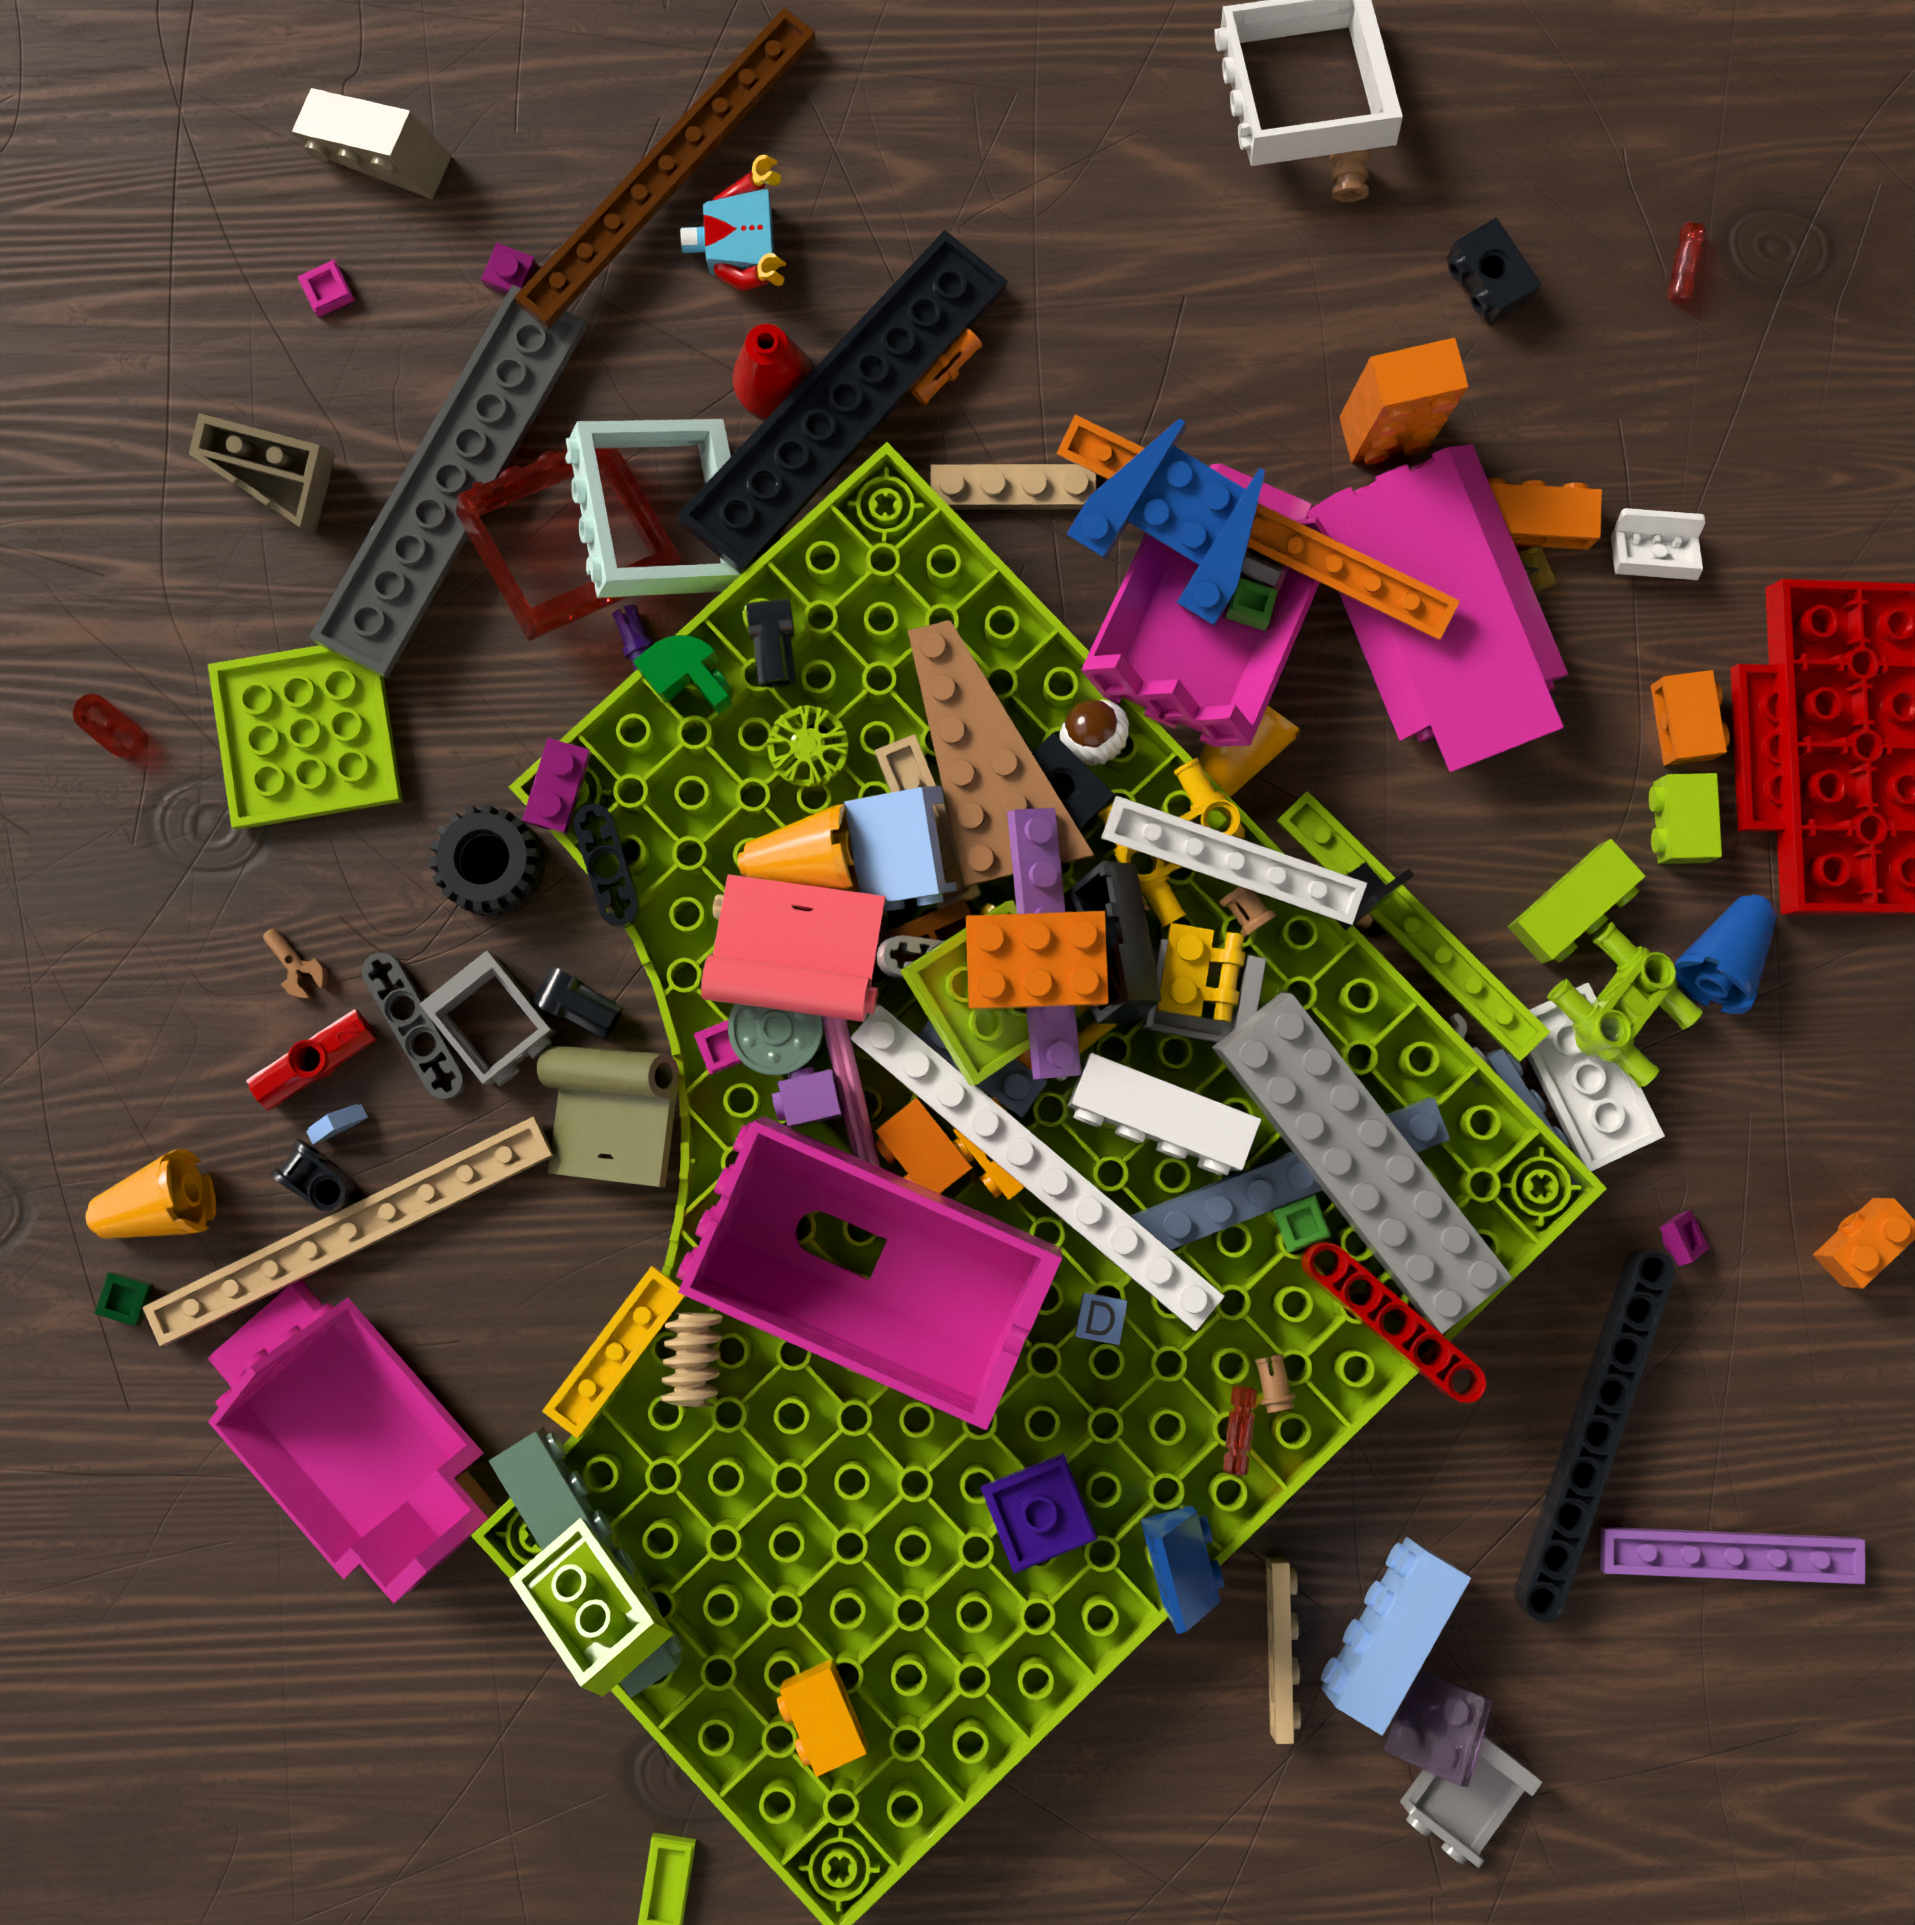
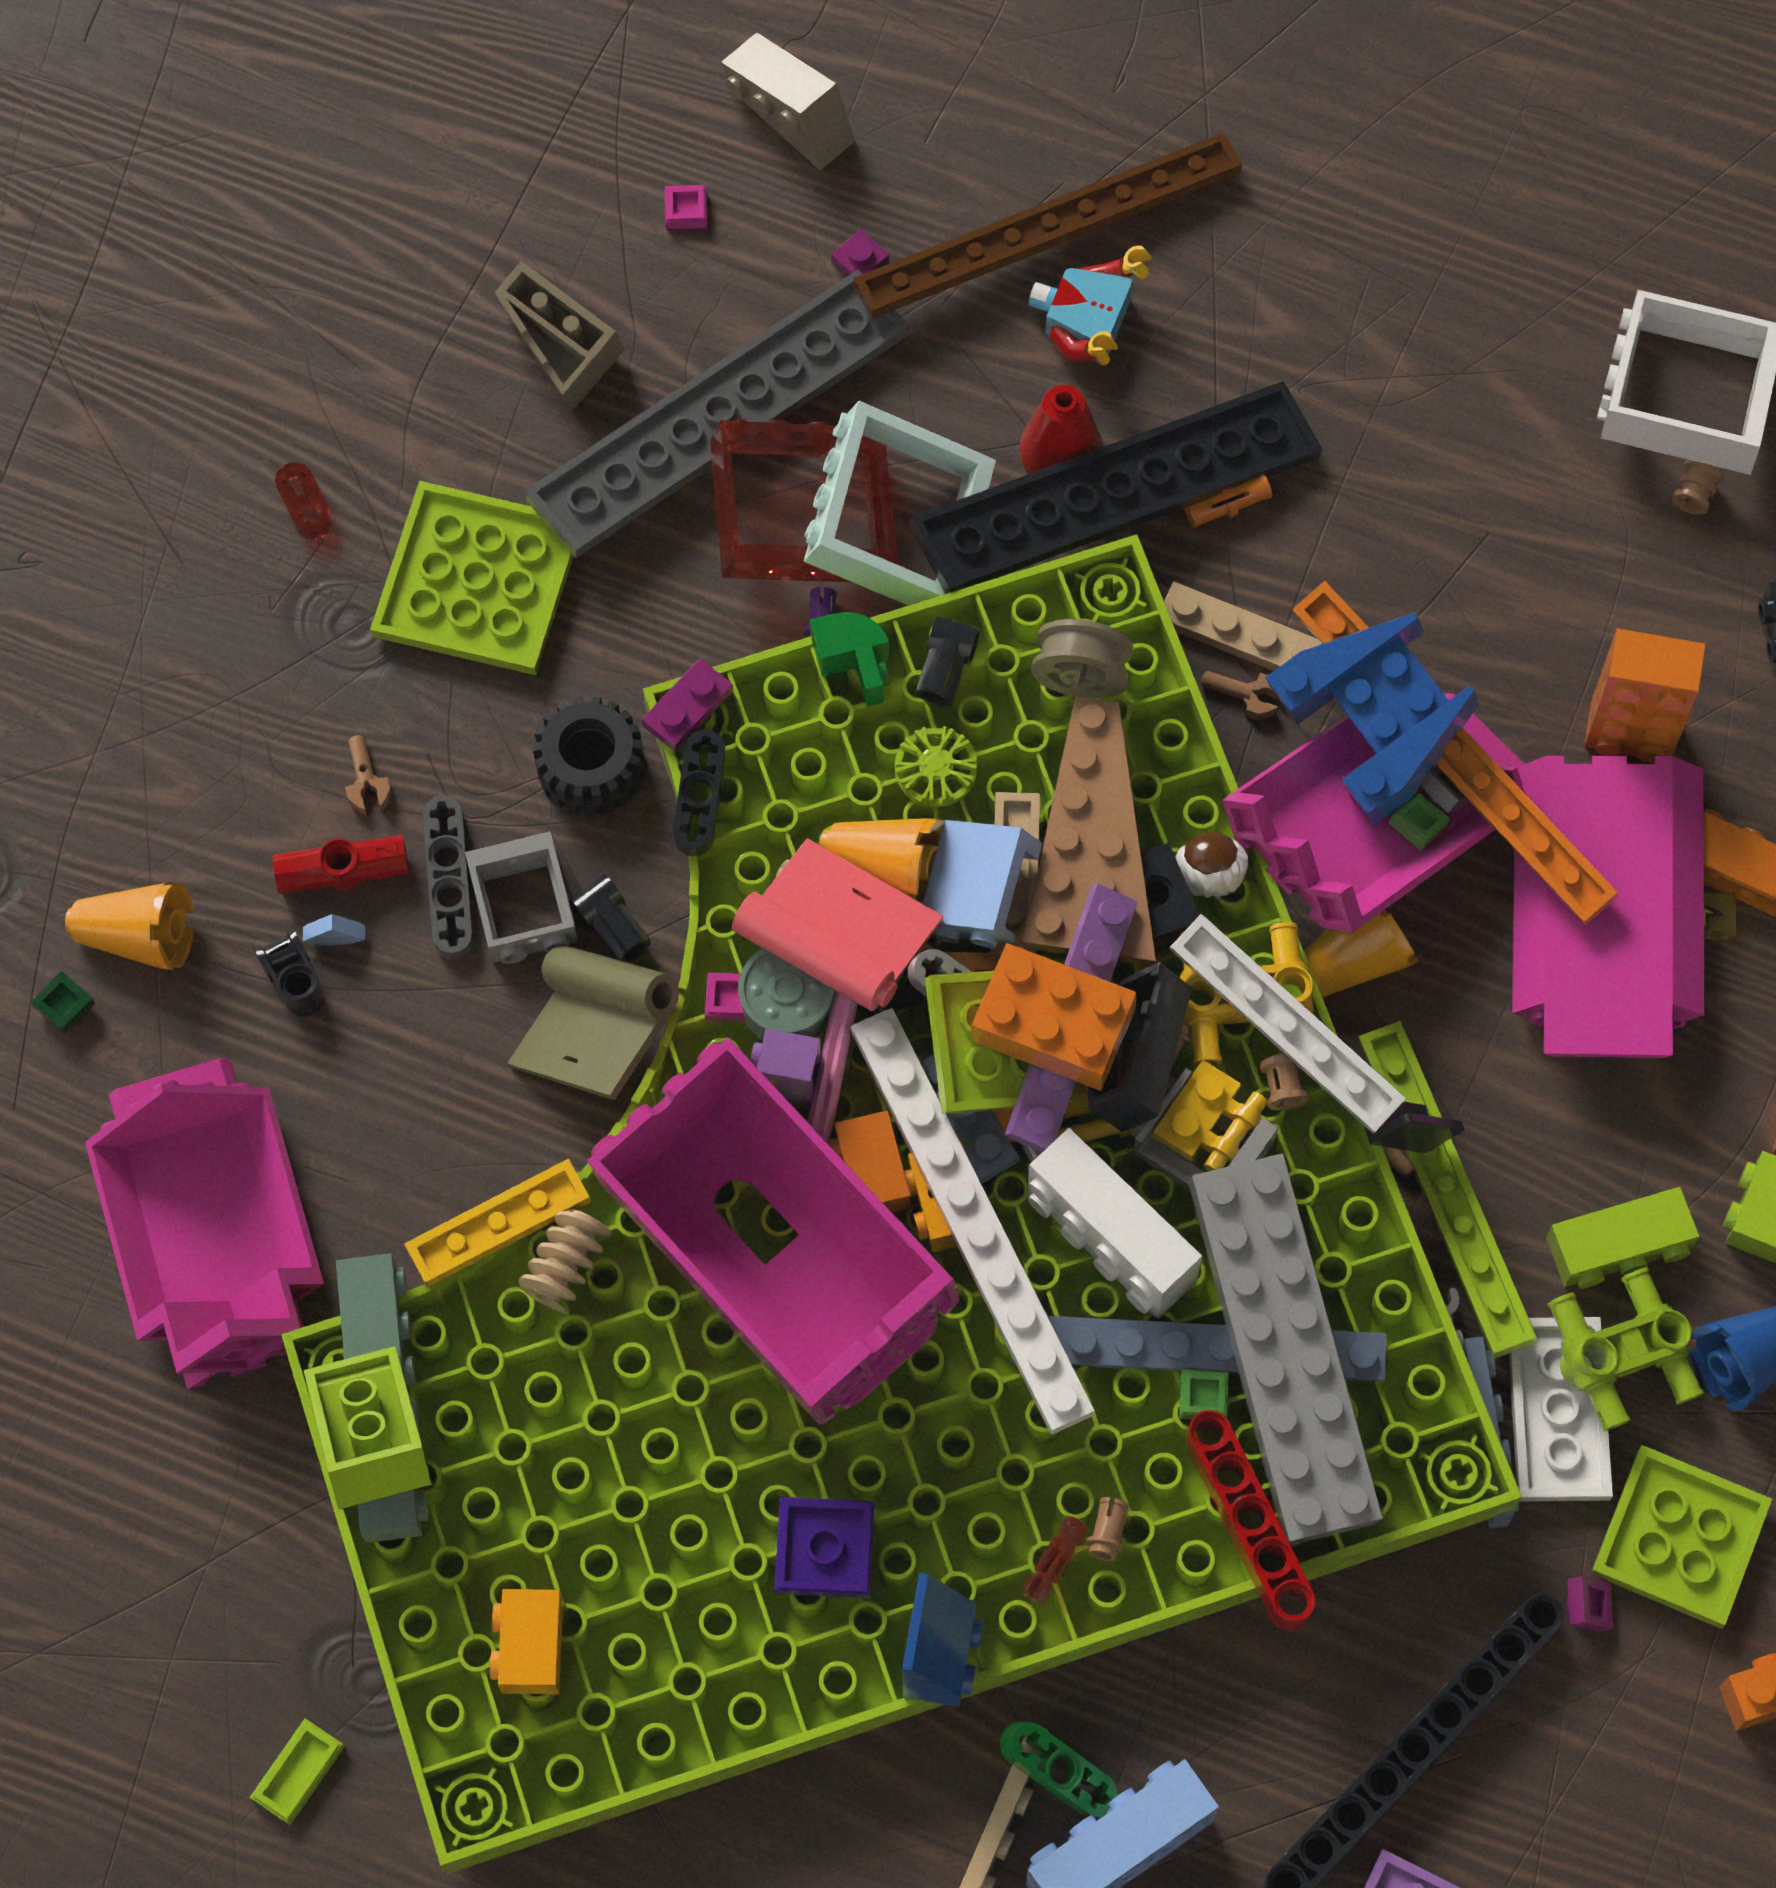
camera: 30 degrees right, 15 degrees down
(347, 1231) = (298, 1032): tan plate -> none
(897, 590) = (1082, 658): none -> dark tan wheel
(1038, 541) = (1246, 692): none -> medium nougat bar
(1101, 1318) = (968, 1397): light blue tile -> none
(1299, 1583) = (1039, 1768): none -> green beam
(1733, 1143) = (1681, 1536): none -> lime plate

